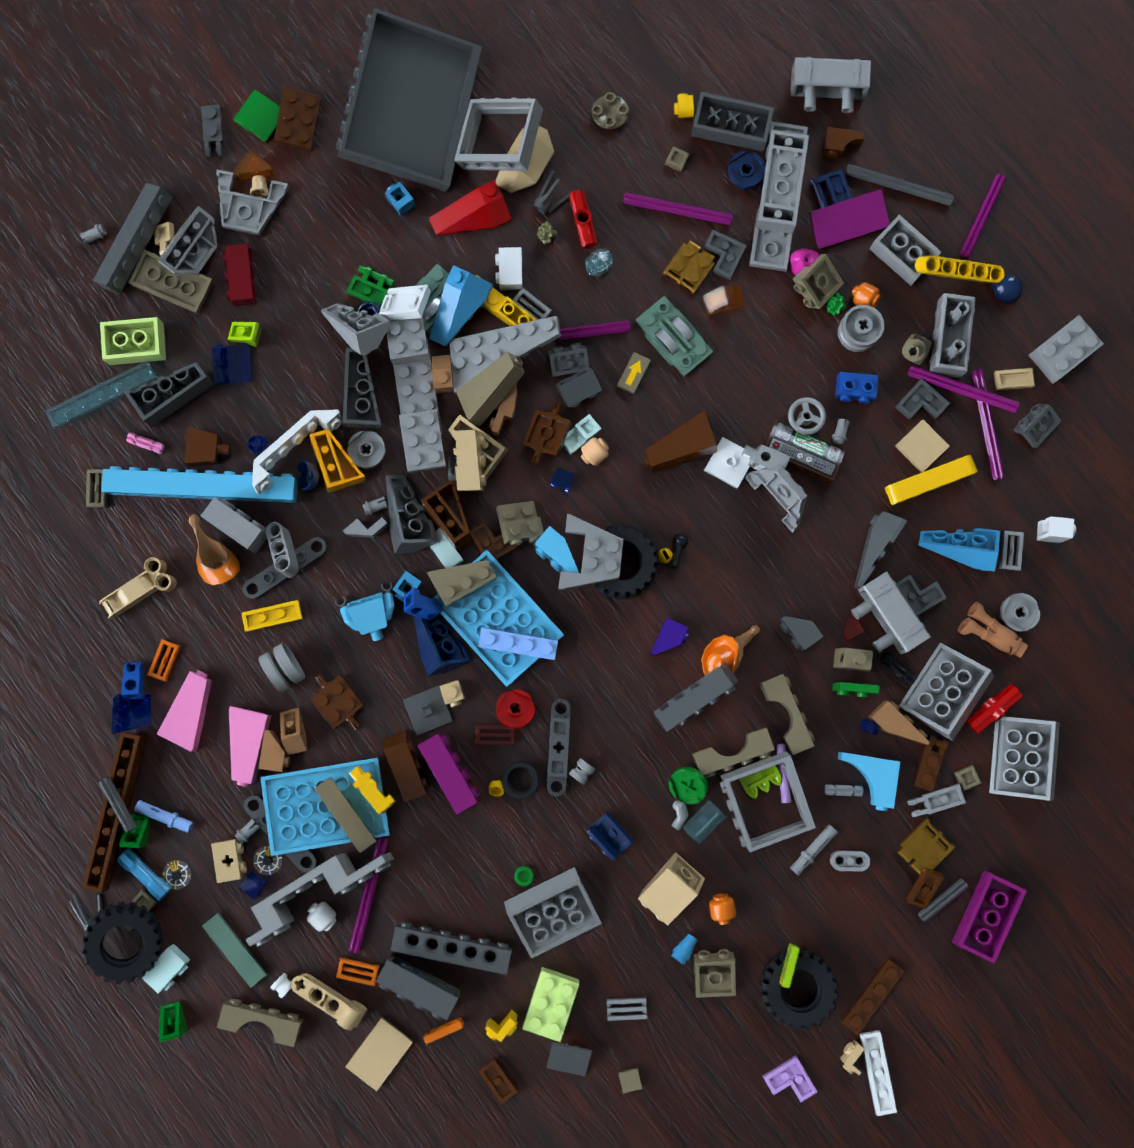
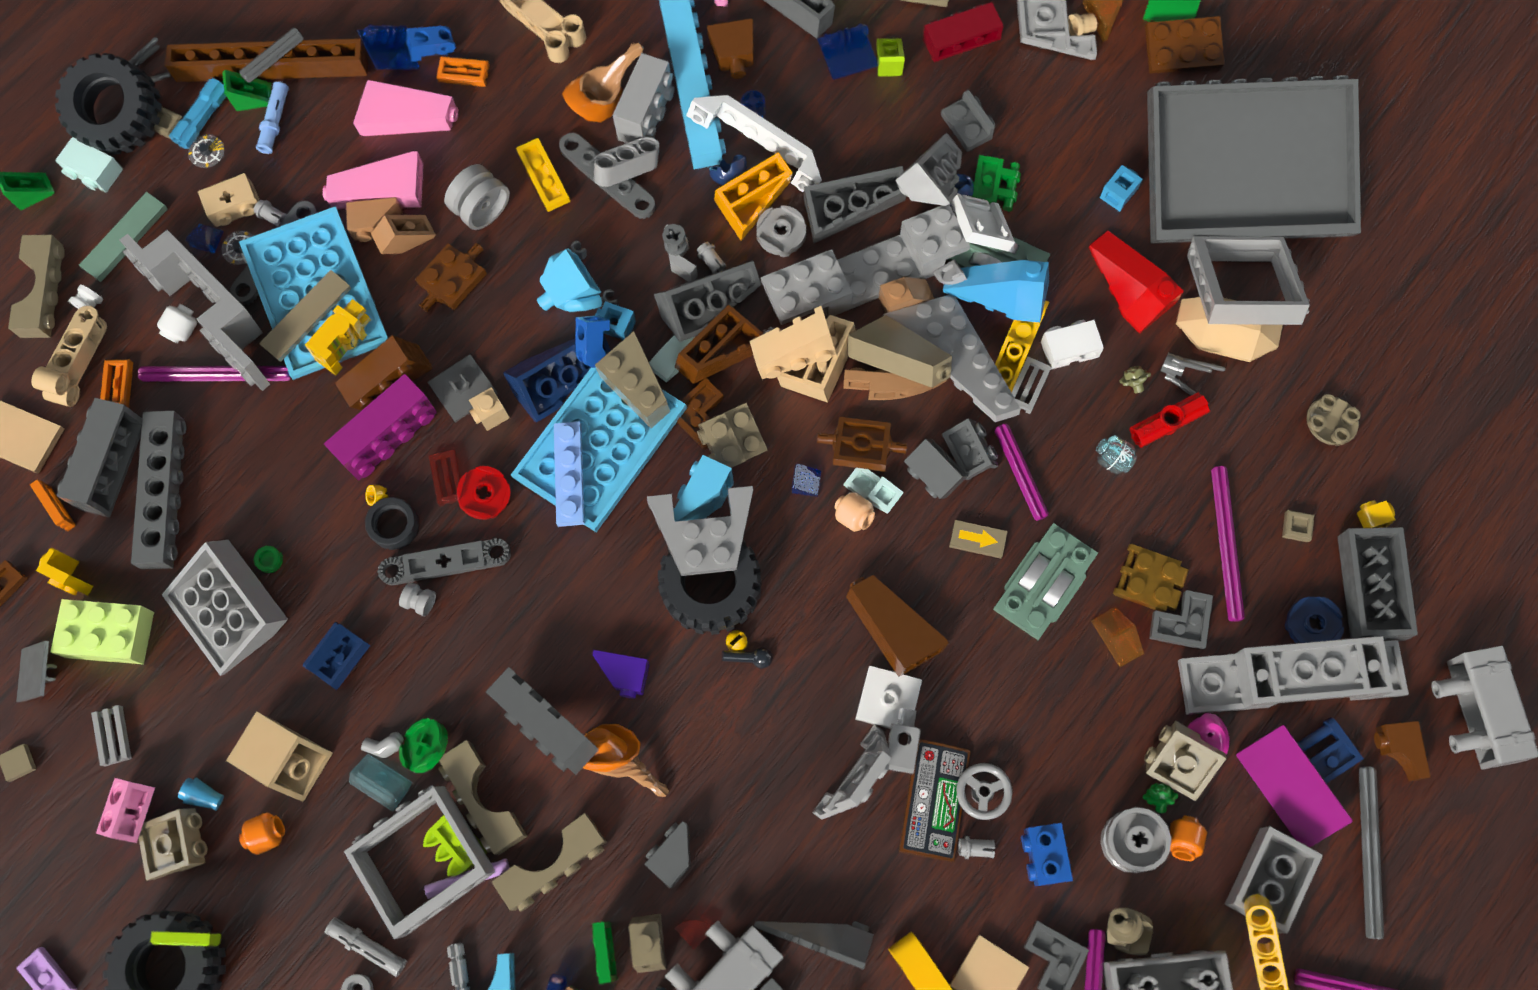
camera: 80 degrees right, 10 degrees down
(315, 291) = (969, 121): none -> dark grey bracket
(355, 523) = (679, 235): none -> dark grey bush
(435, 337) = (950, 273): none -> light grey tile
(685, 1002) = (125, 810): none -> bright pink brick

